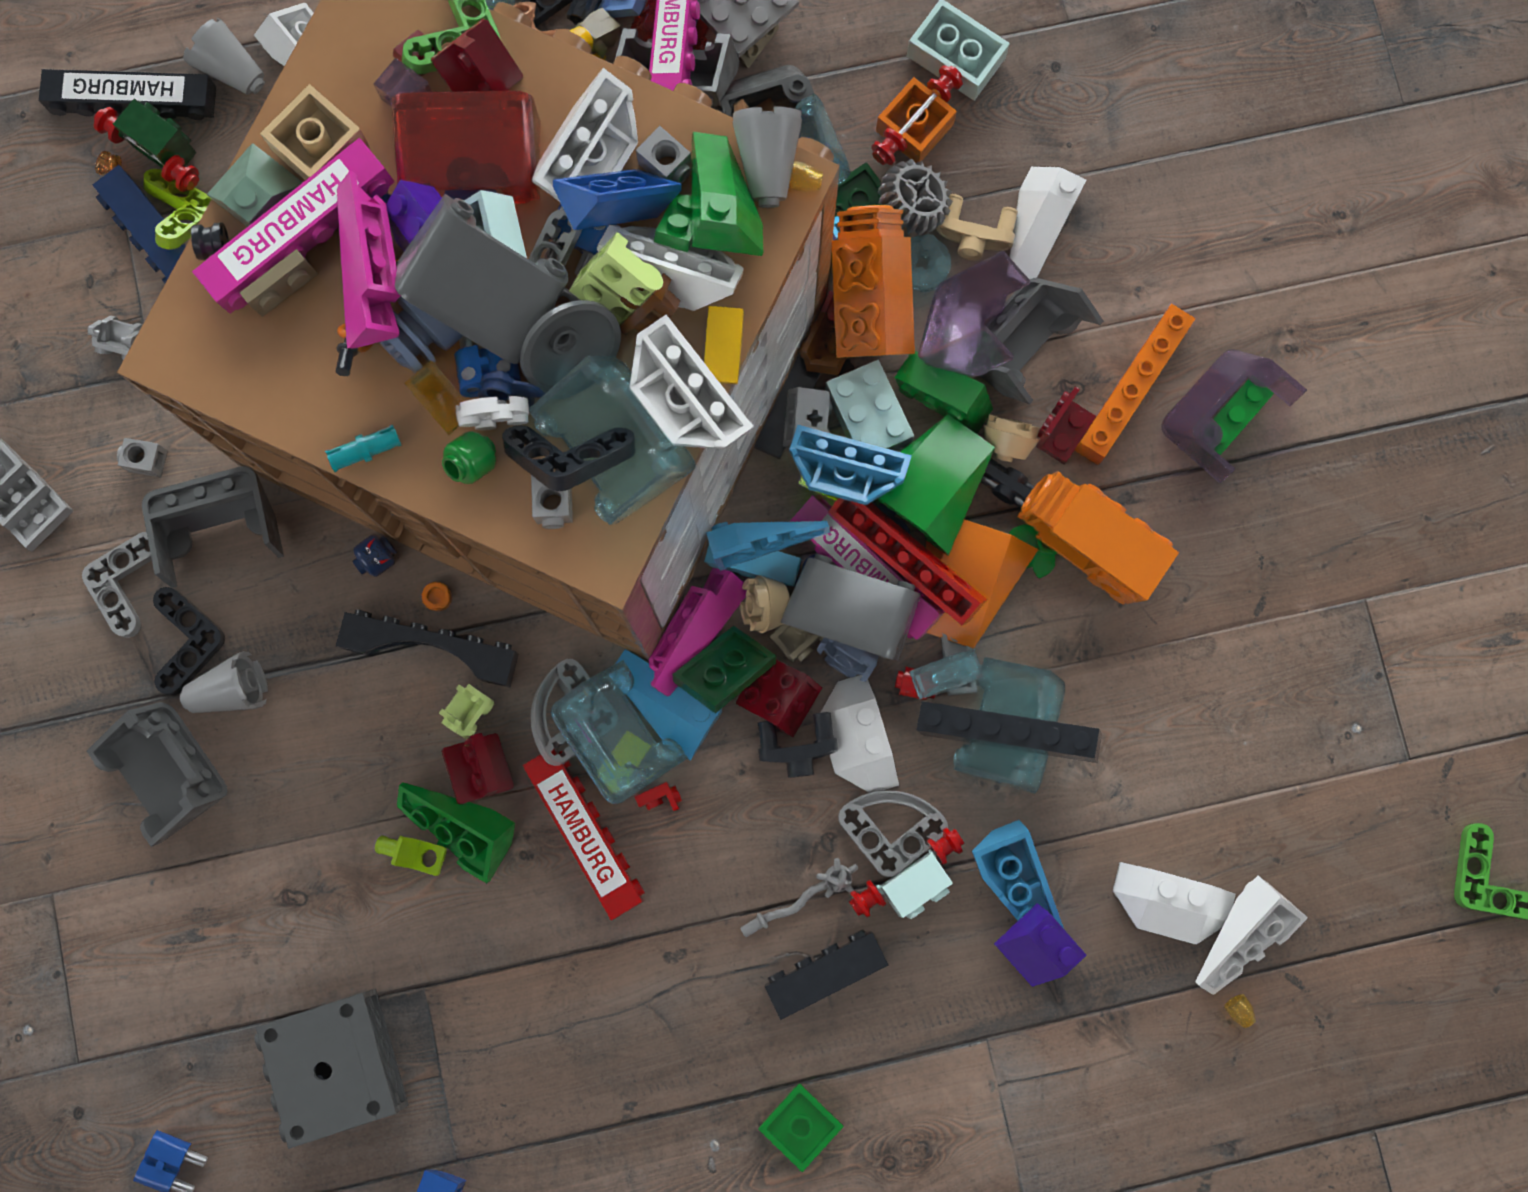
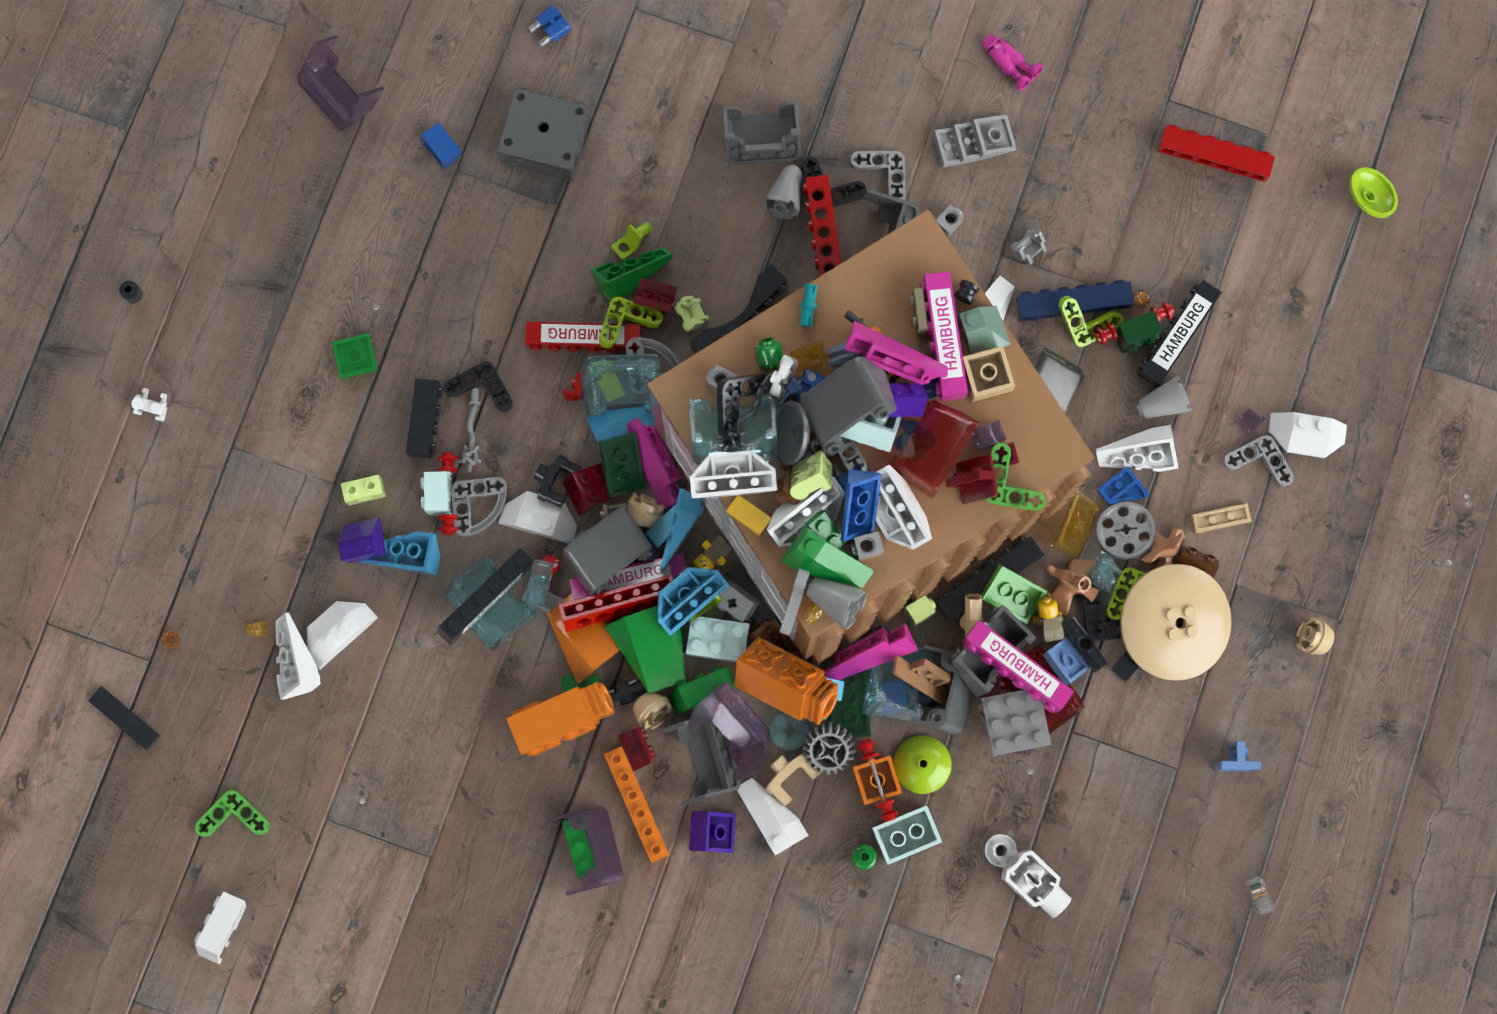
camera: 120 degrees right, 0 degrees up
(187, 641) = (822, 185): none -> red brick
(520, 795) = (625, 313): none -> lime beam
(628, 424) = (732, 437): none -> black piece
(721, 924) = (486, 379): none -> black beam
(764, 484) = (713, 554): none -> piece
(782, 210) = (795, 600): none -> light grey beam
(857, 103) = (908, 768): none -> lime dish
(972, 991) = (363, 490): none -> yellowish green brick
(1015, 83) = (856, 856): none -> green head
(1107, 275) = (712, 832): none -> dark purple slope
(1339, 1116) = (176, 644): none -> clear orange bush
(1469, 1111) = (124, 718): none -> black tile

